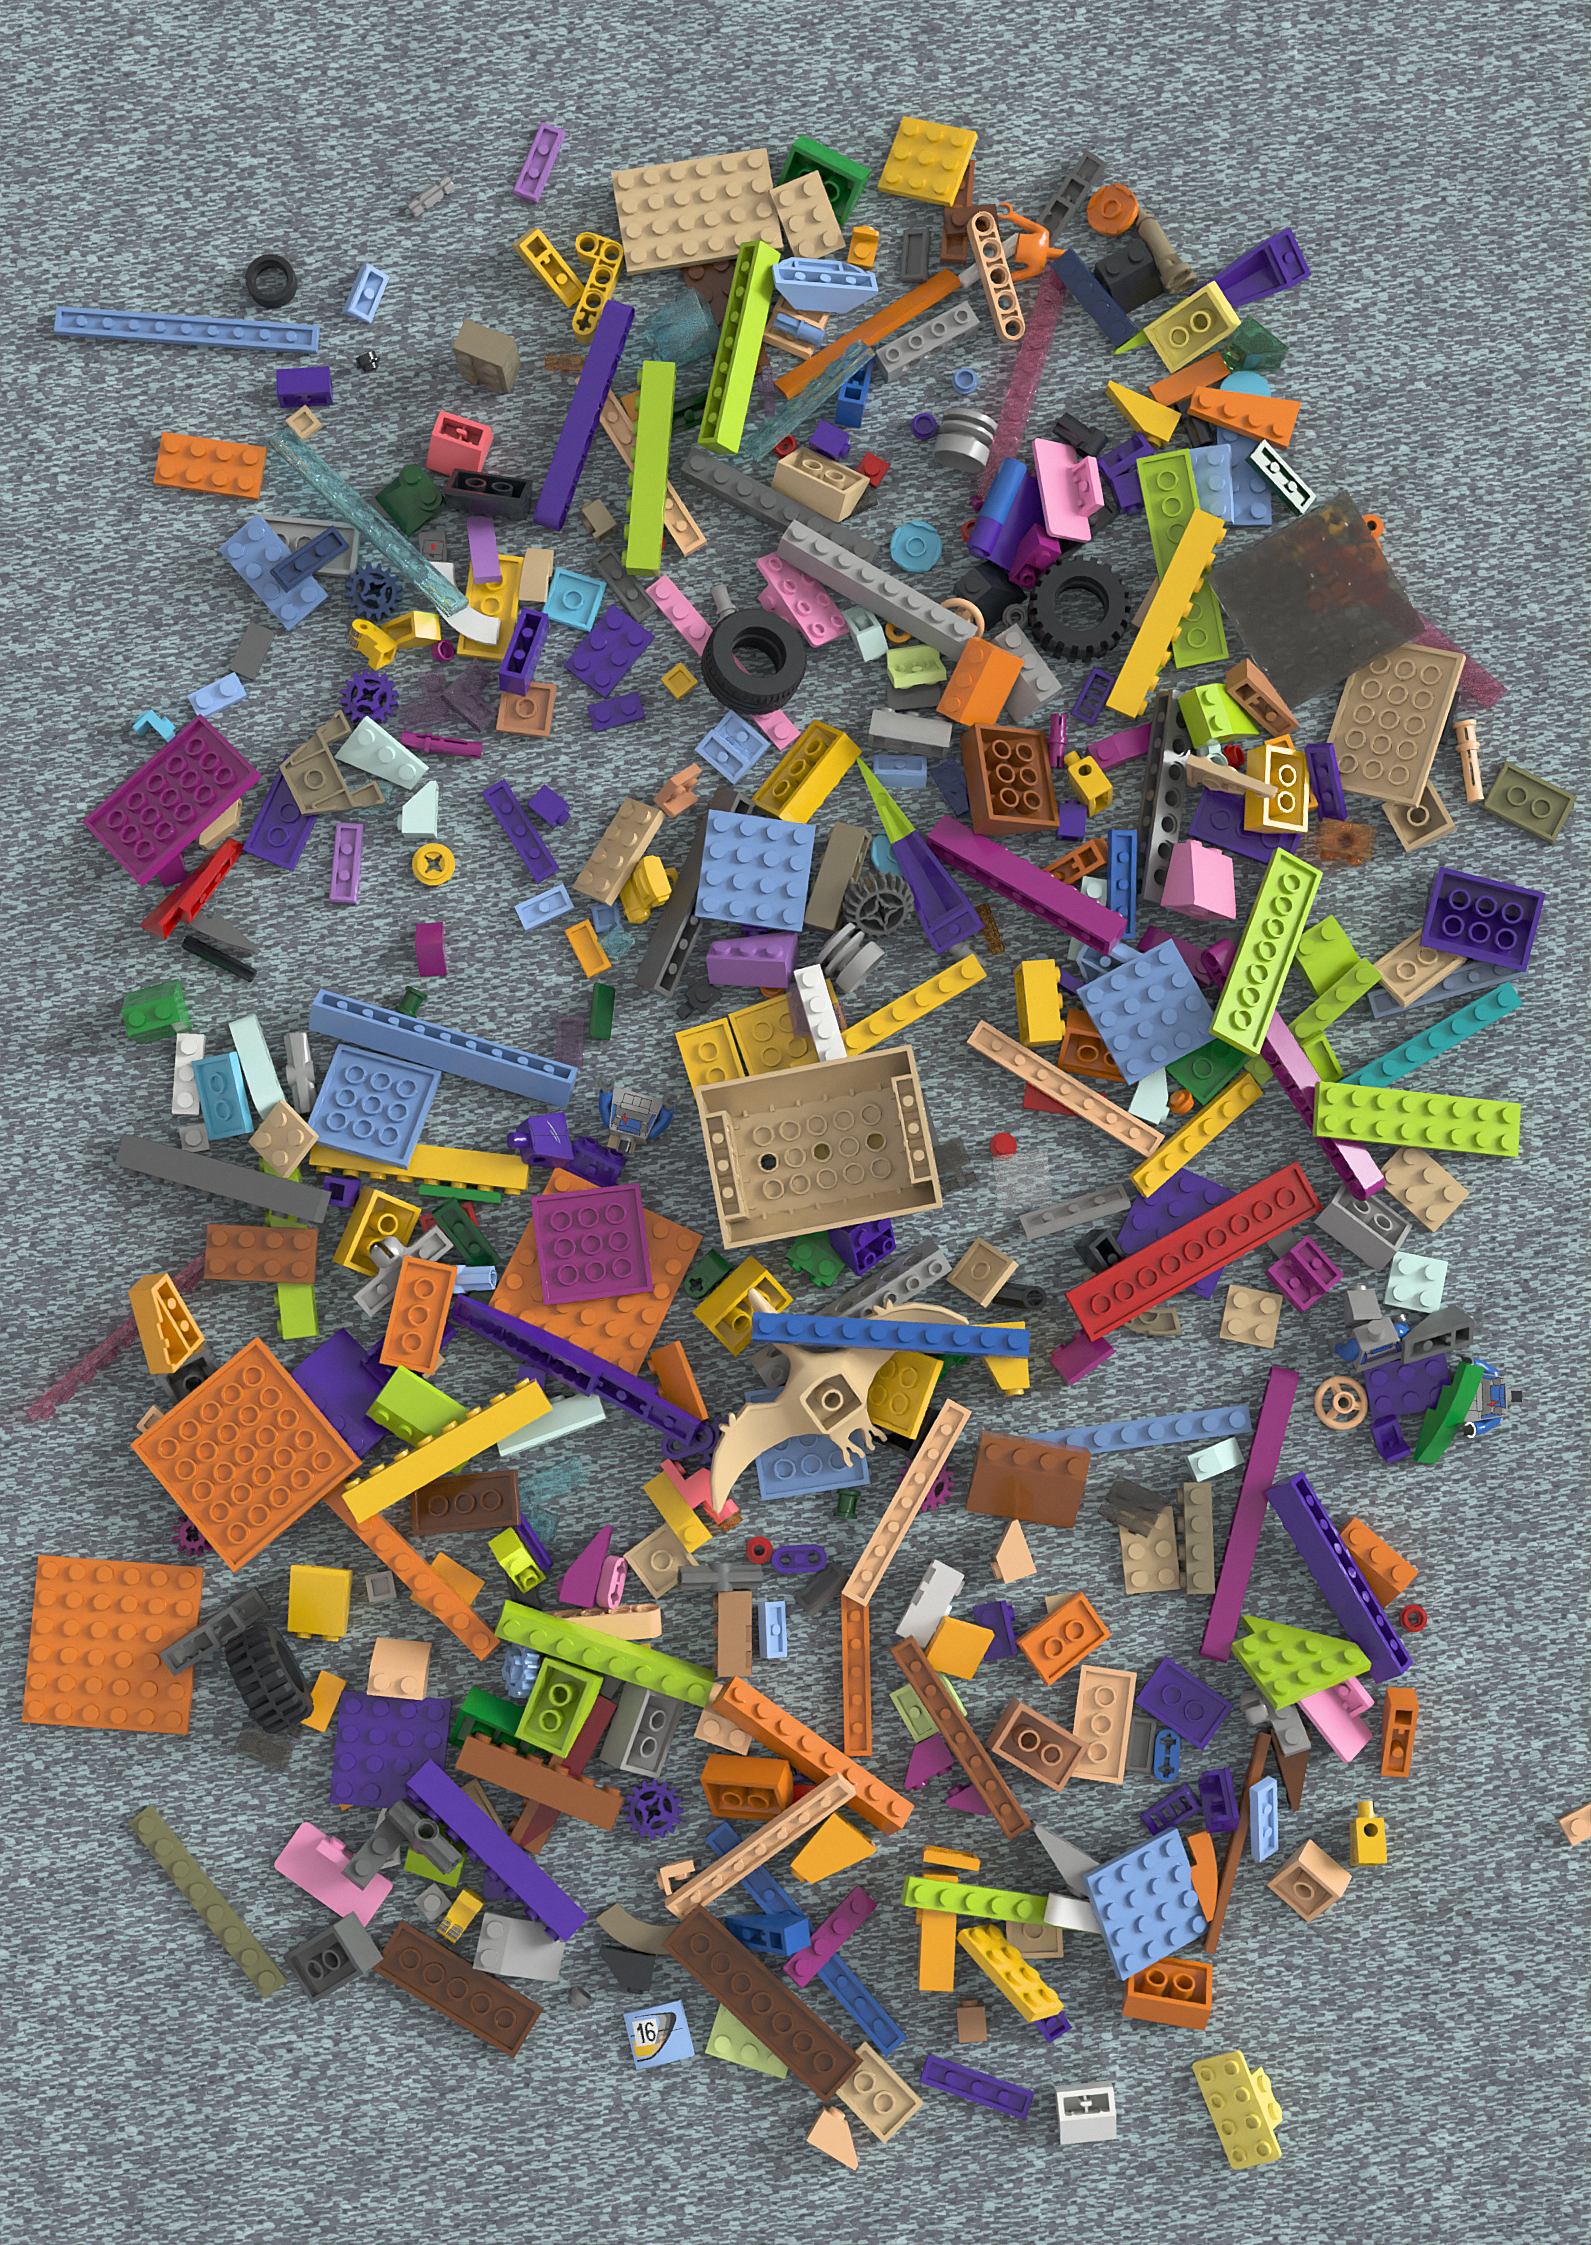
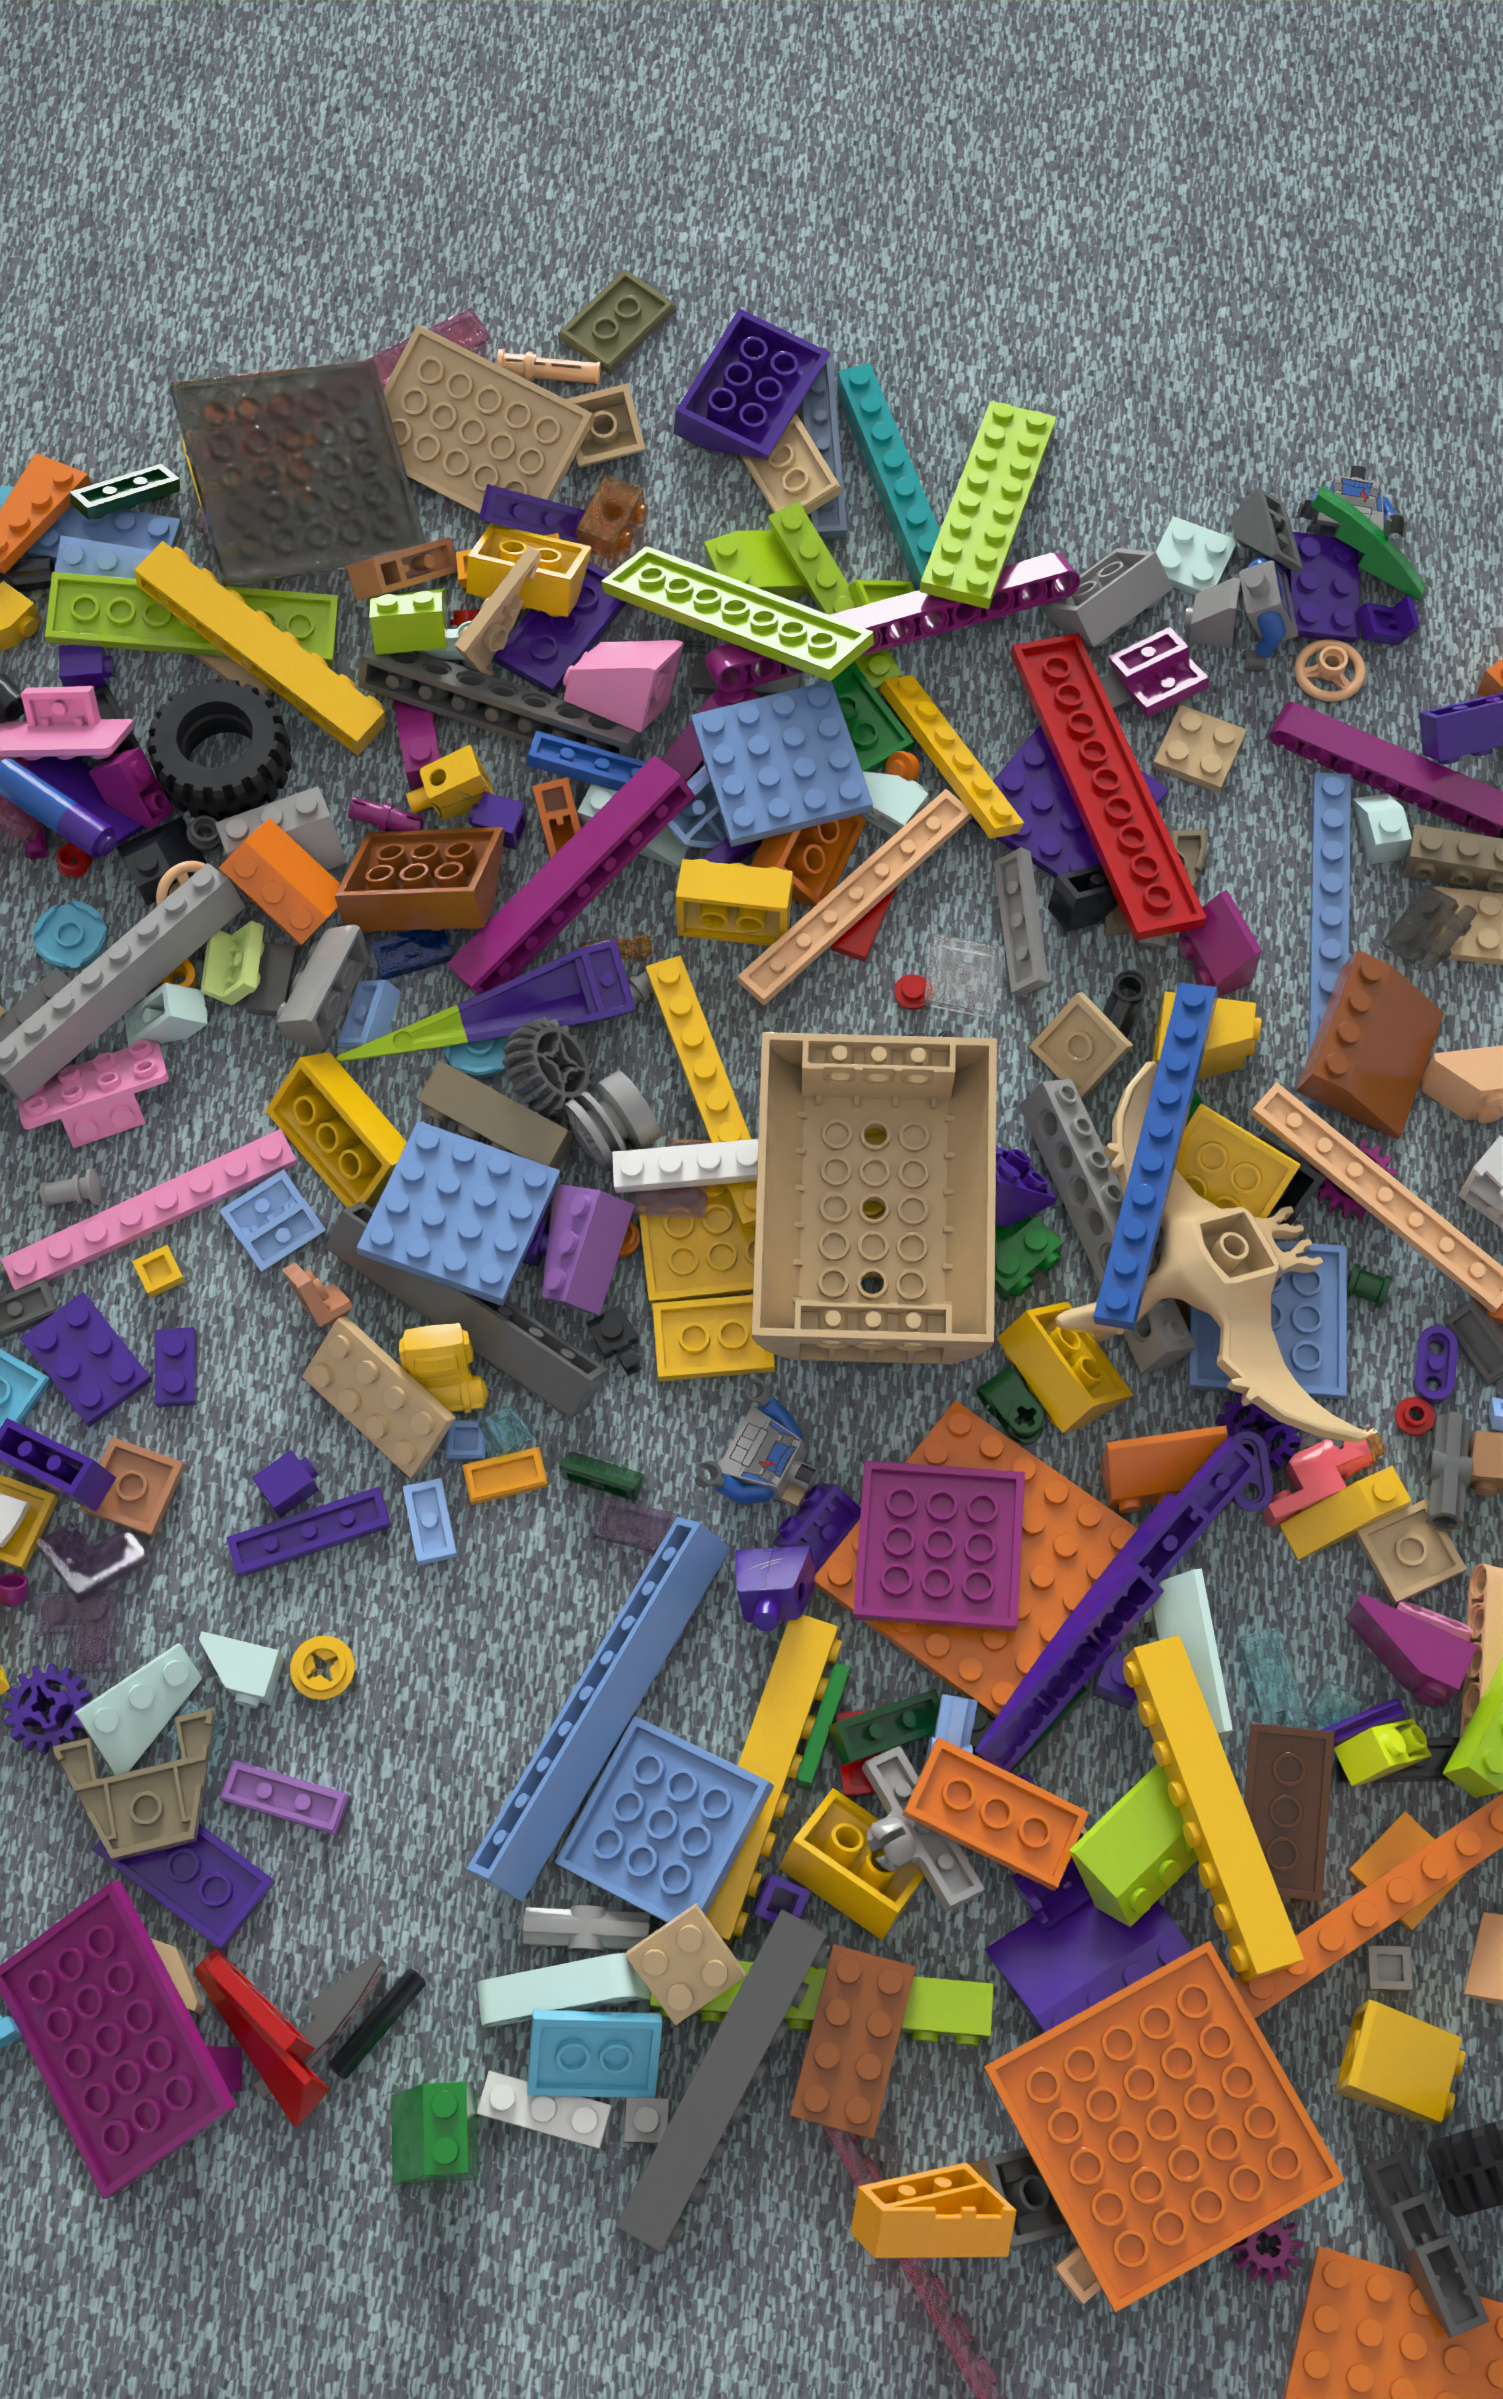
camera: 75 degrees left, 15 degrees down
(410, 1002) = (518, 1741): dark green bush -> none
(430, 949) = (447, 1697): magenta slope -> none
(436, 744) = (153, 1611): magenta pin -> none
(768, 634) = (176, 1190): black tyre -> none
(1085, 692) = (327, 737): dark purple slope -> none
(1123, 458) = (35, 658): dark purple hinge -> none
(1422, 1186) = (1072, 524): tan plate -> none

